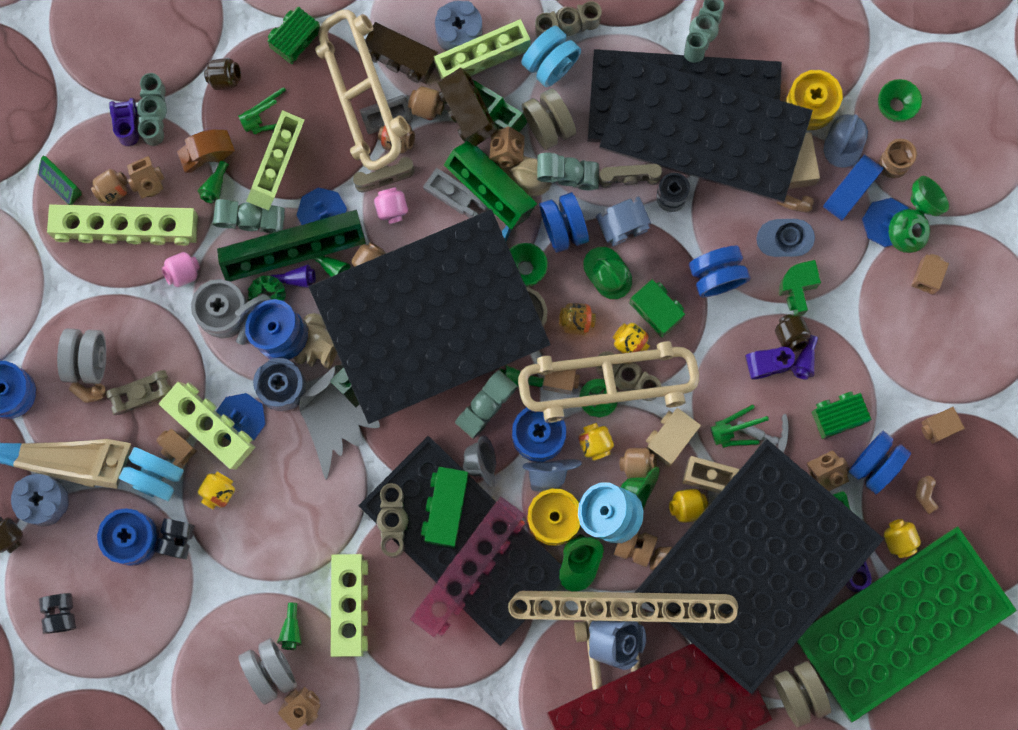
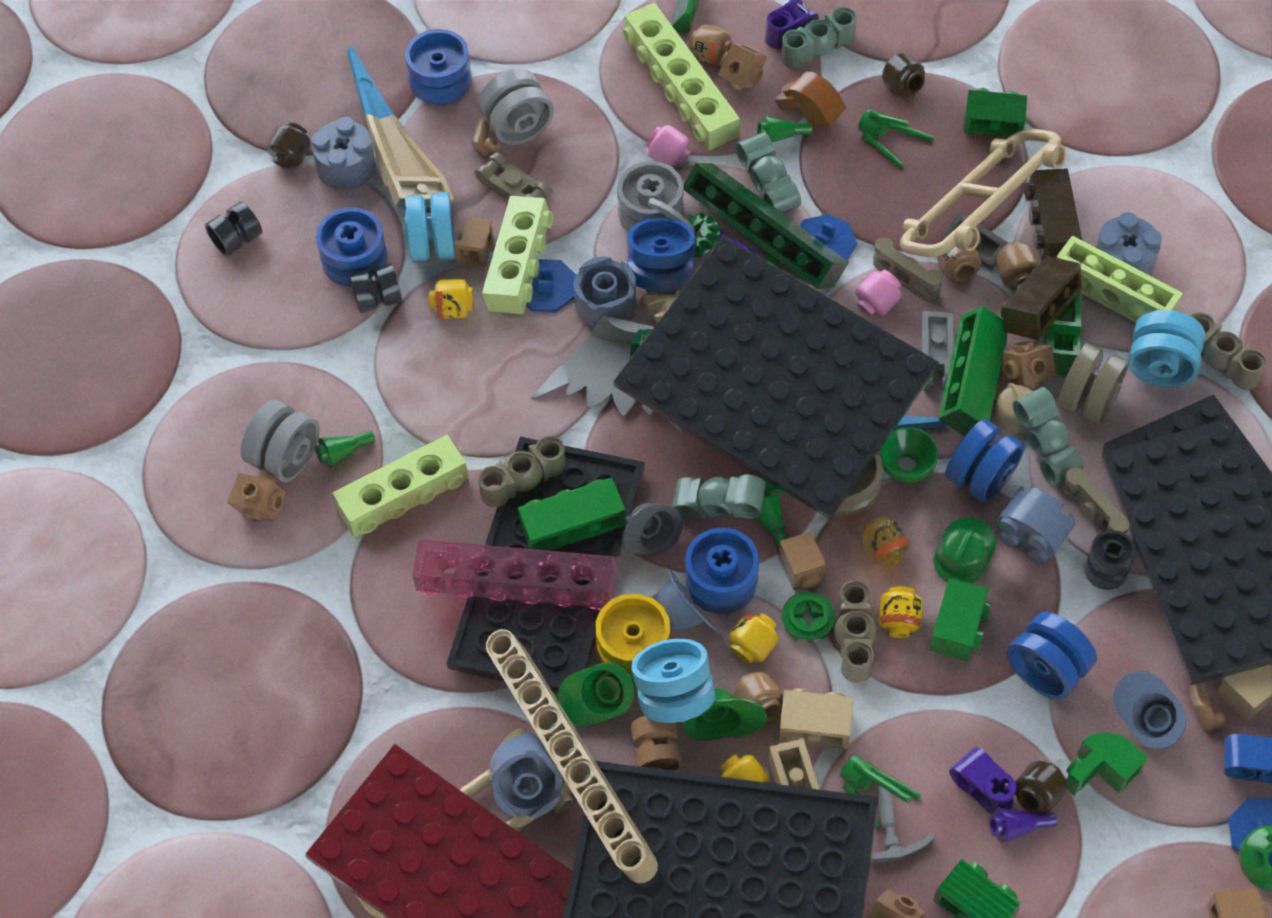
camera: 60 degrees right, 20 degrees down
(275, 160) = (844, 157): yellowish green brick -> none
(553, 409) = (864, 682): tan bar -> none

